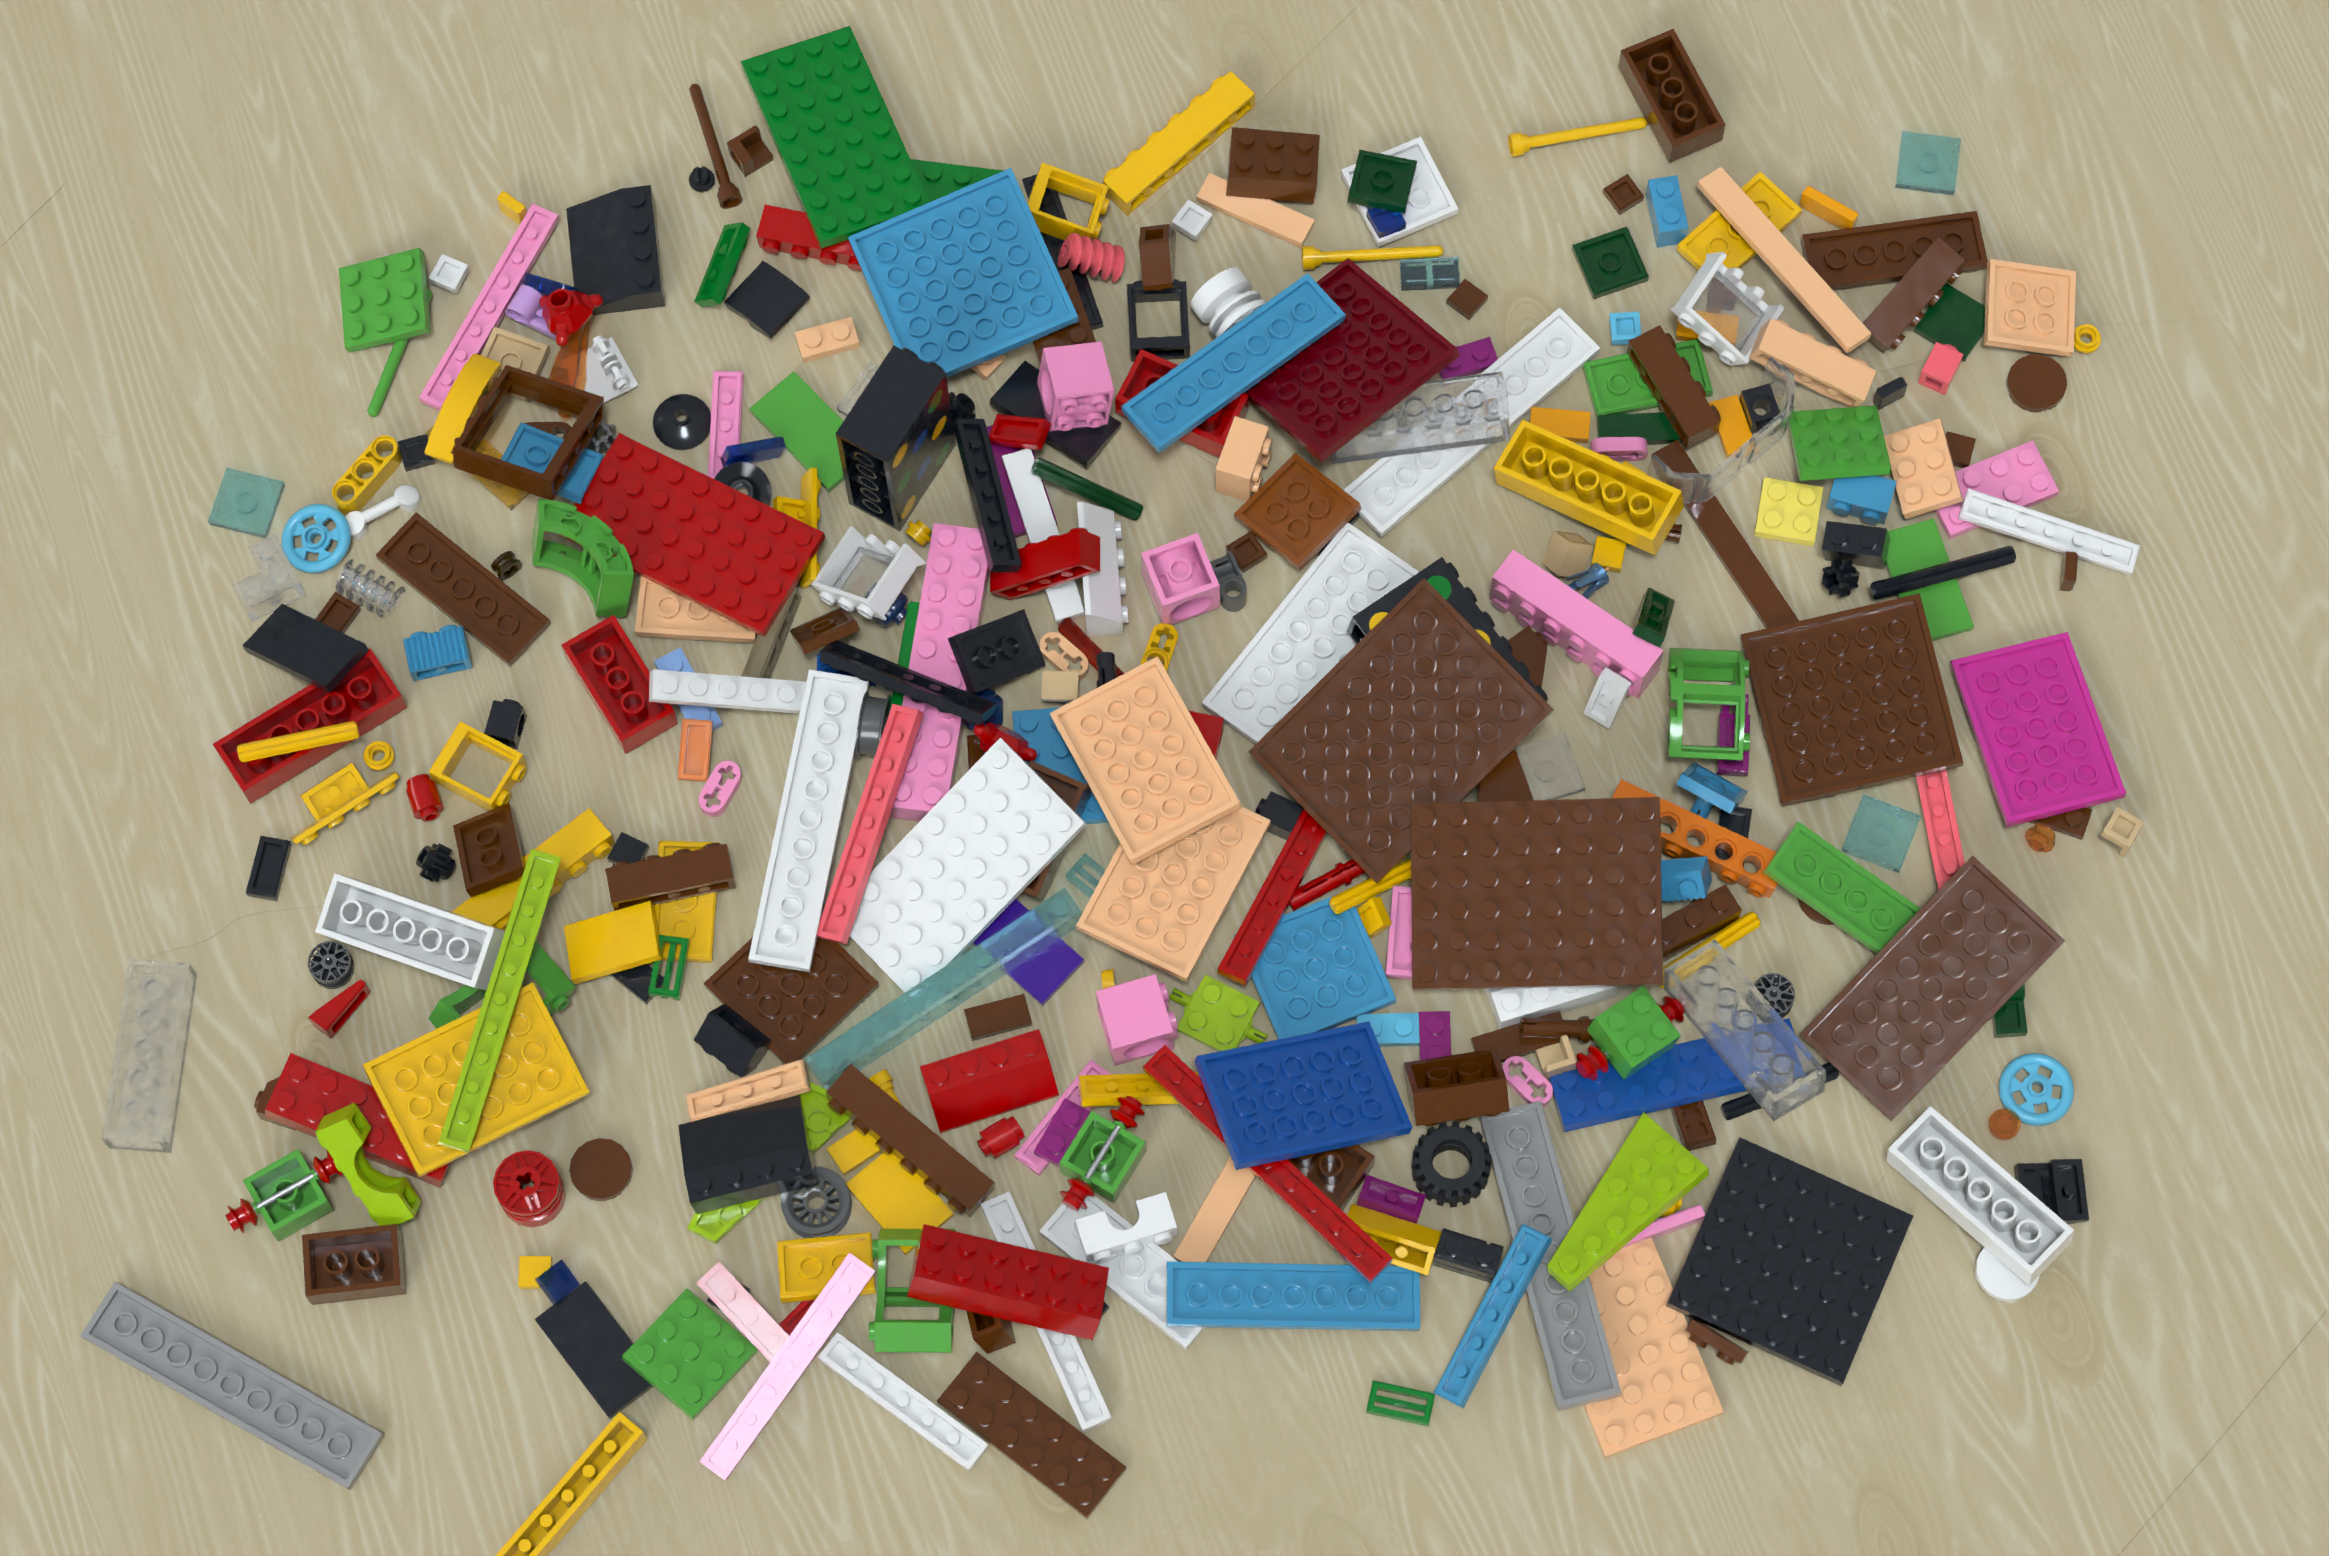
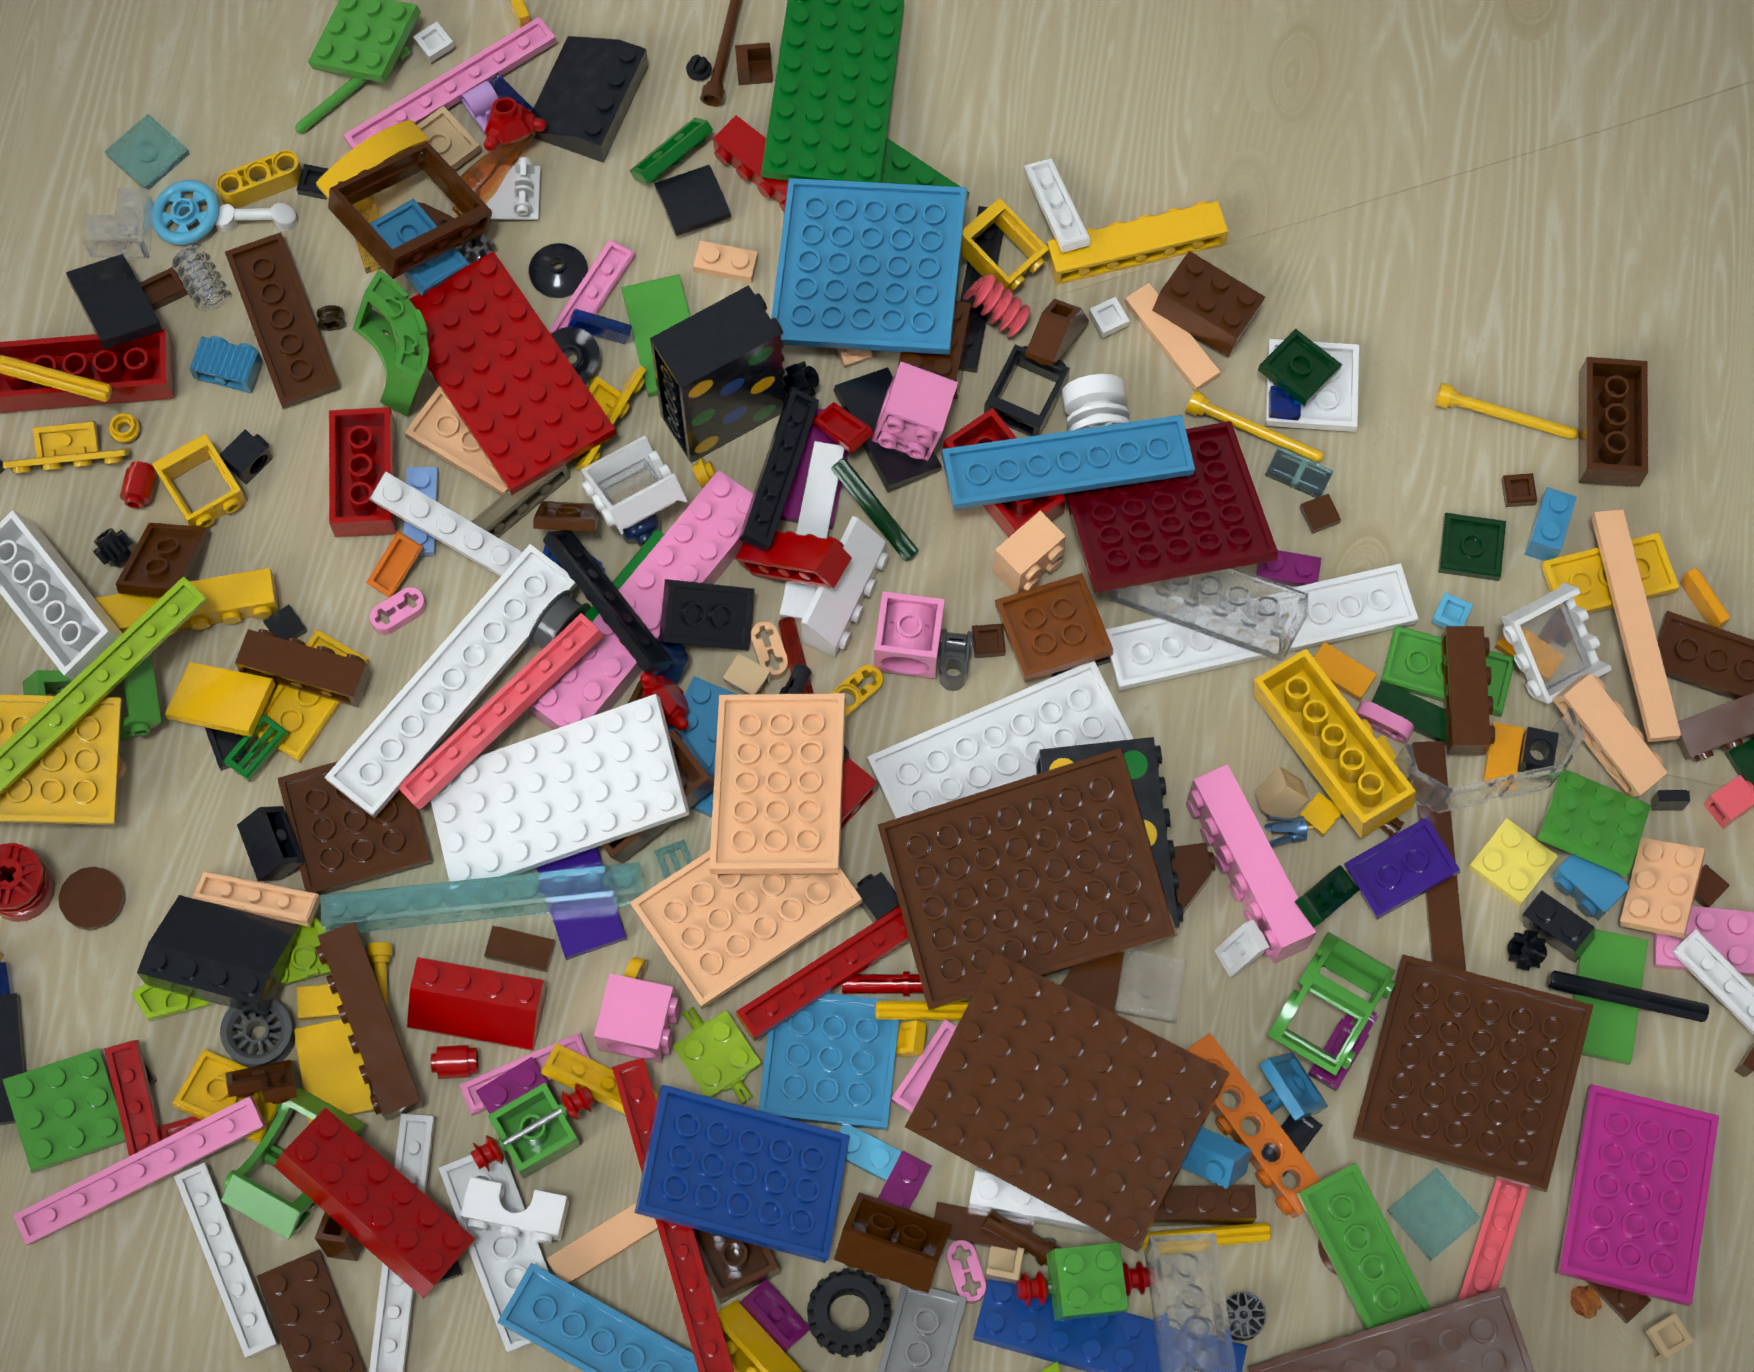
camera: 25 degrees right, 0 degrees up
(858, 1230) = (272, 1079): none -> reddish brown plate
(1092, 144) = (1057, 205): none -> white tile
(1701, 563) = (1402, 868): none -> dark purple plate

